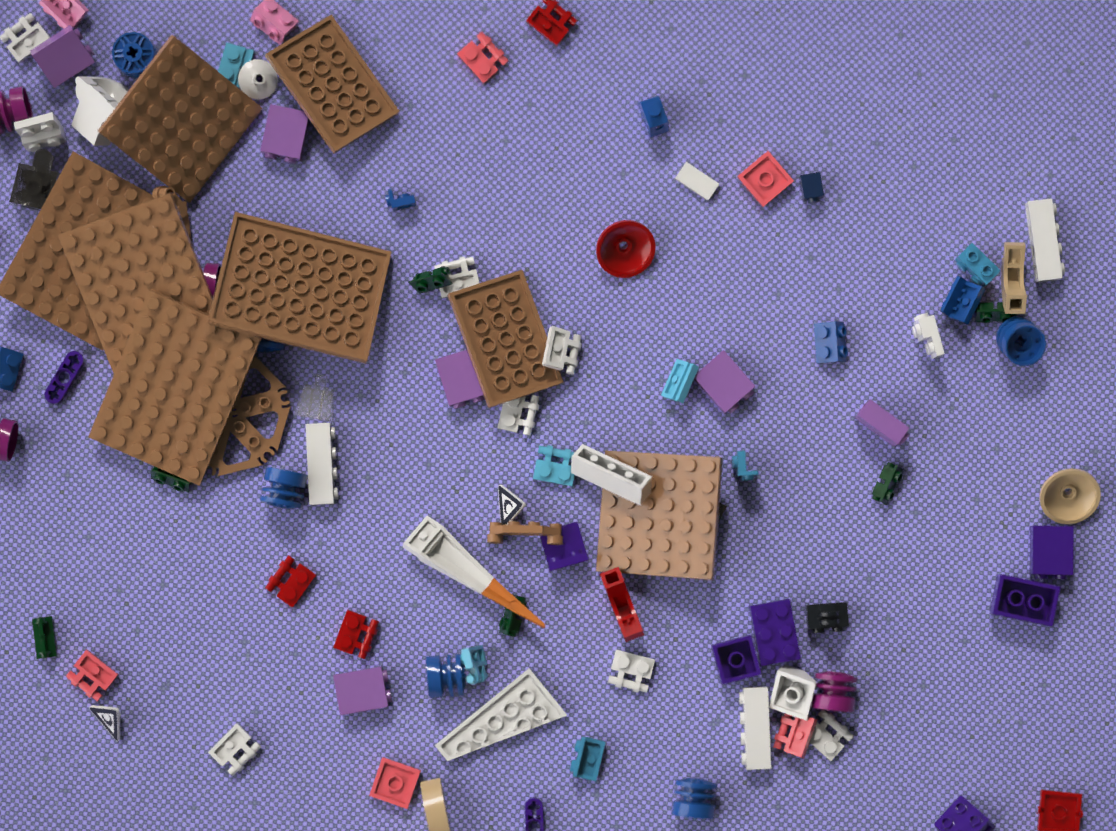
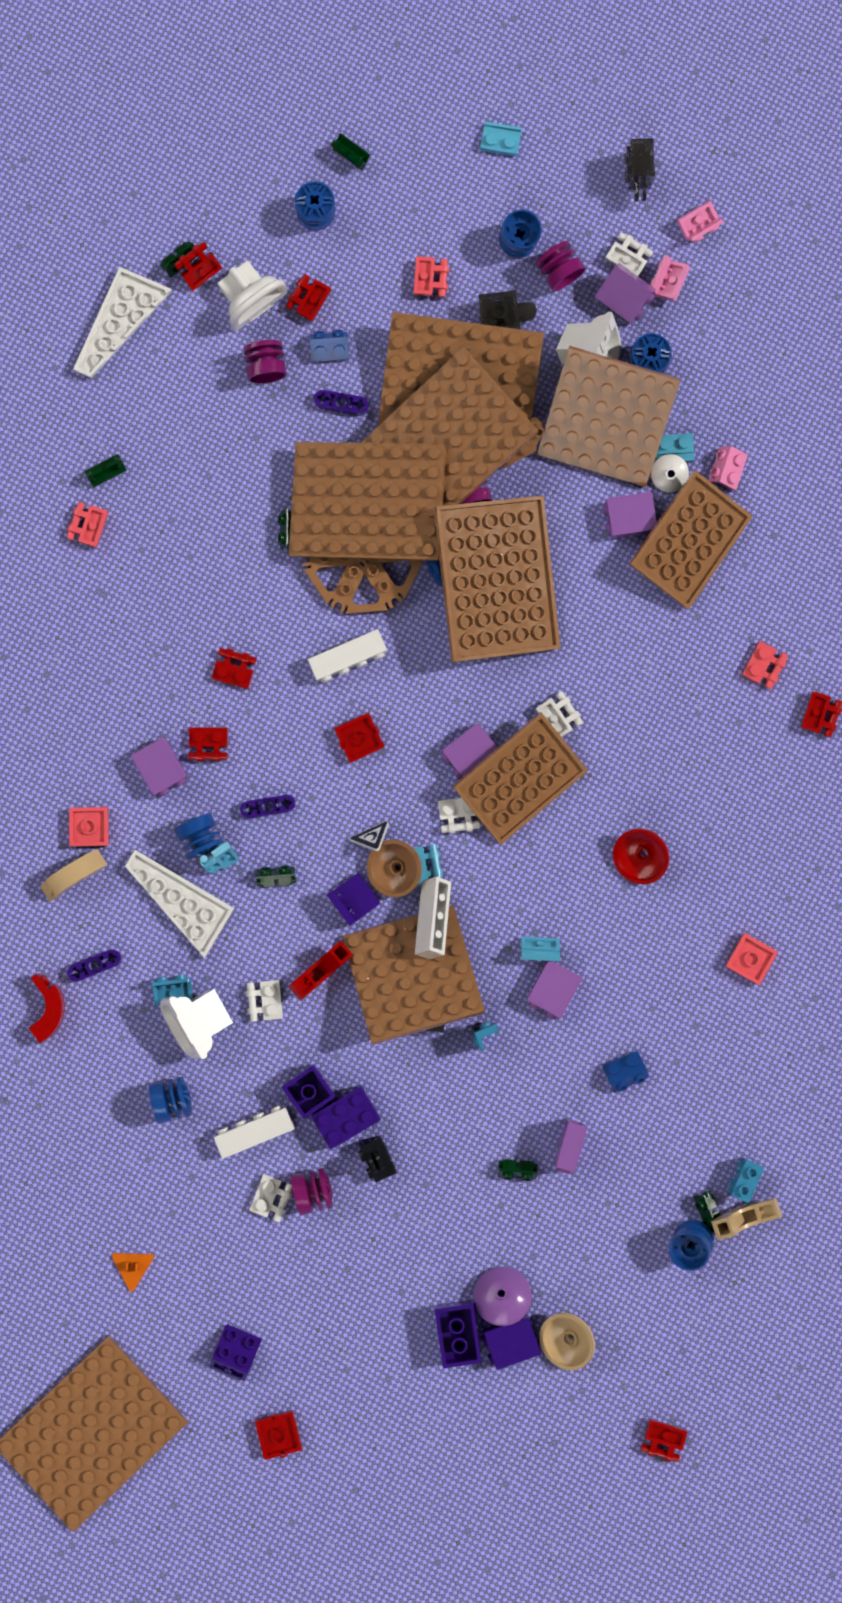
camera: 60 degrees right, 0 degrees up
(40, 132) = (550, 299): white plate -> none
(109, 719) = (54, 554): piece -> none
(230, 744) = (68, 668): white plate -> none
(283, 487) = (313, 630): blue wheel -> none
(316, 401) = (402, 631): clear torso -> none
(403, 201) = (608, 642): blue bracket -> none
(406, 482) = (359, 738): none -> red plate
(430, 280) = (545, 690): dark green hinge -> none
(443, 614) = (272, 799): none -> dark purple beam
(444, 553) = (308, 794): white plate -> none
(497, 531) = (346, 835): medium nougat plate -> none
(548, 506) = (384, 872): none -> medium nougat dish
(556, 350) = (528, 827): white plate -> none
(626, 746) = (195, 1021): none -> white piece
(654, 116) = (770, 838): blue torso -> none
(697, 181) = (726, 898): white tile -> none
(793, 692) = (298, 1153): white slope -> none
(799, 735) = (262, 1173): coral plate -> none
(811, 187) = (759, 1003): dark blue brick -> none
(926, 329) = (670, 1155): white plate -> none
(962, 300) = (708, 1178): blue bracket -> none
(1017, 546) = (506, 1309): none -> medium lavender dish
(1044, 241) = (791, 1232): white brick -> none

